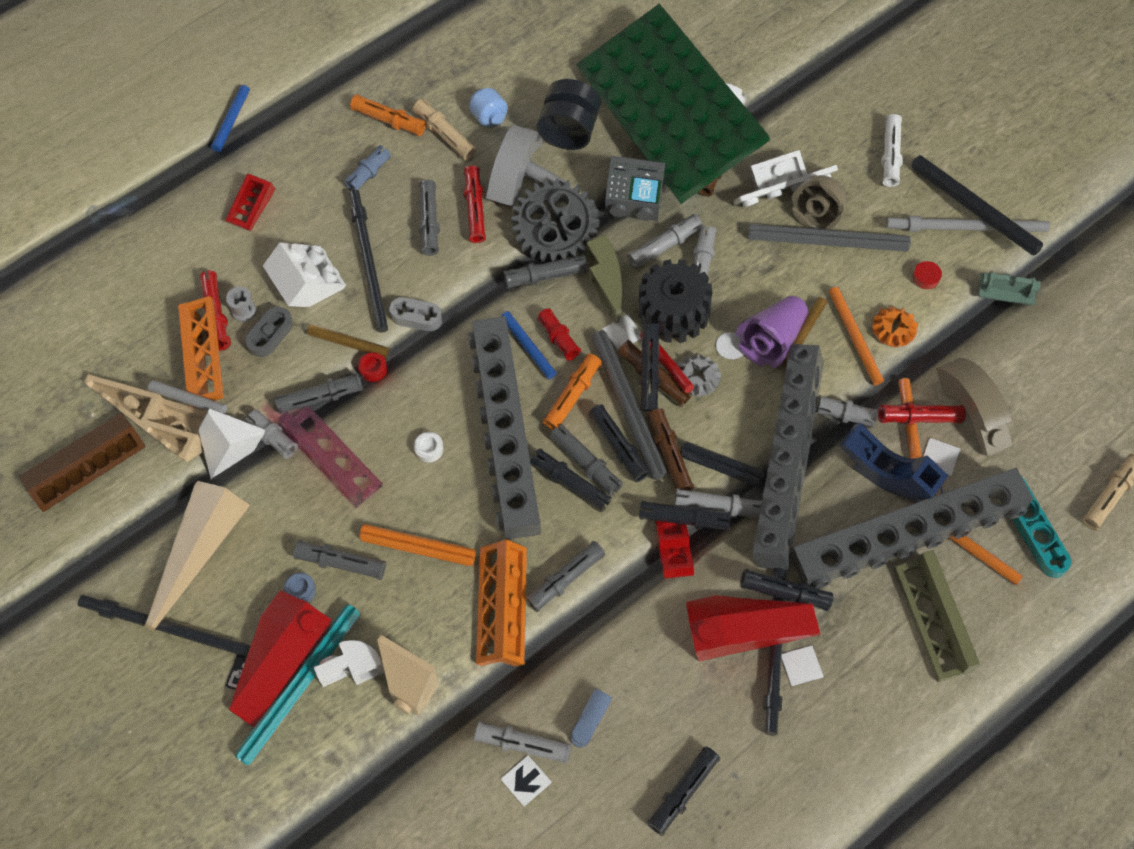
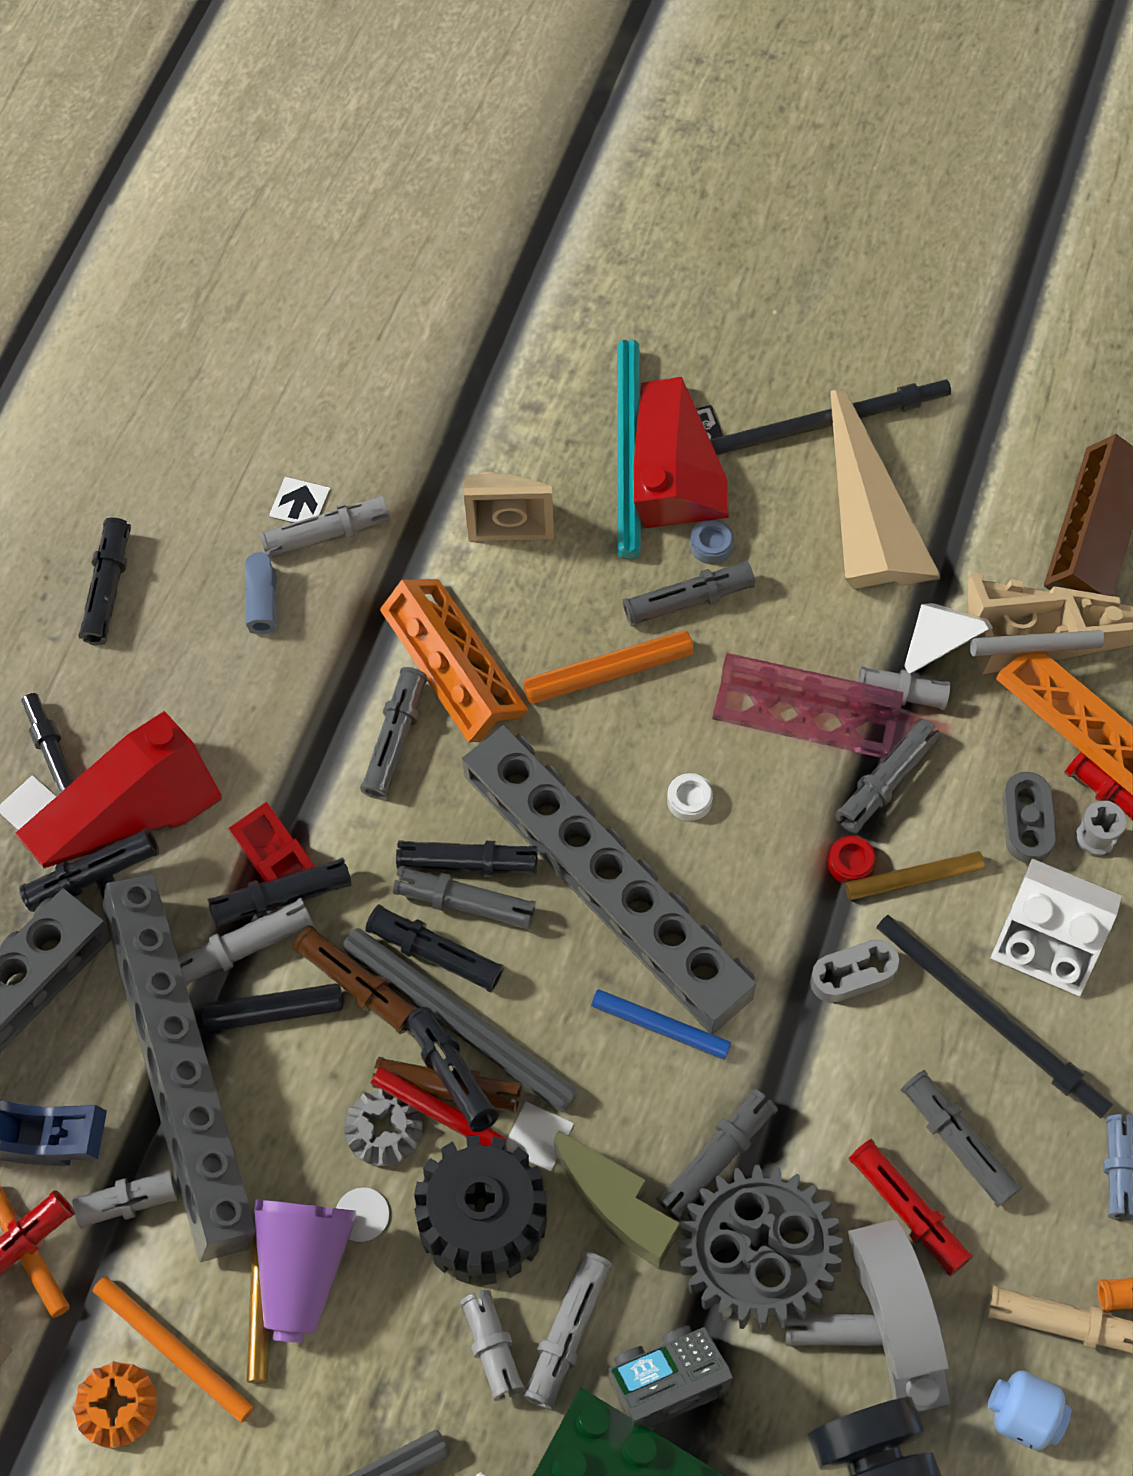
camera: 150 degrees right, 0 degrees up
(357, 660) = (582, 495): white brick -> none
(558, 334) = (626, 1061): red pin -> none
(578, 383) = (547, 1035): orange pin -> none

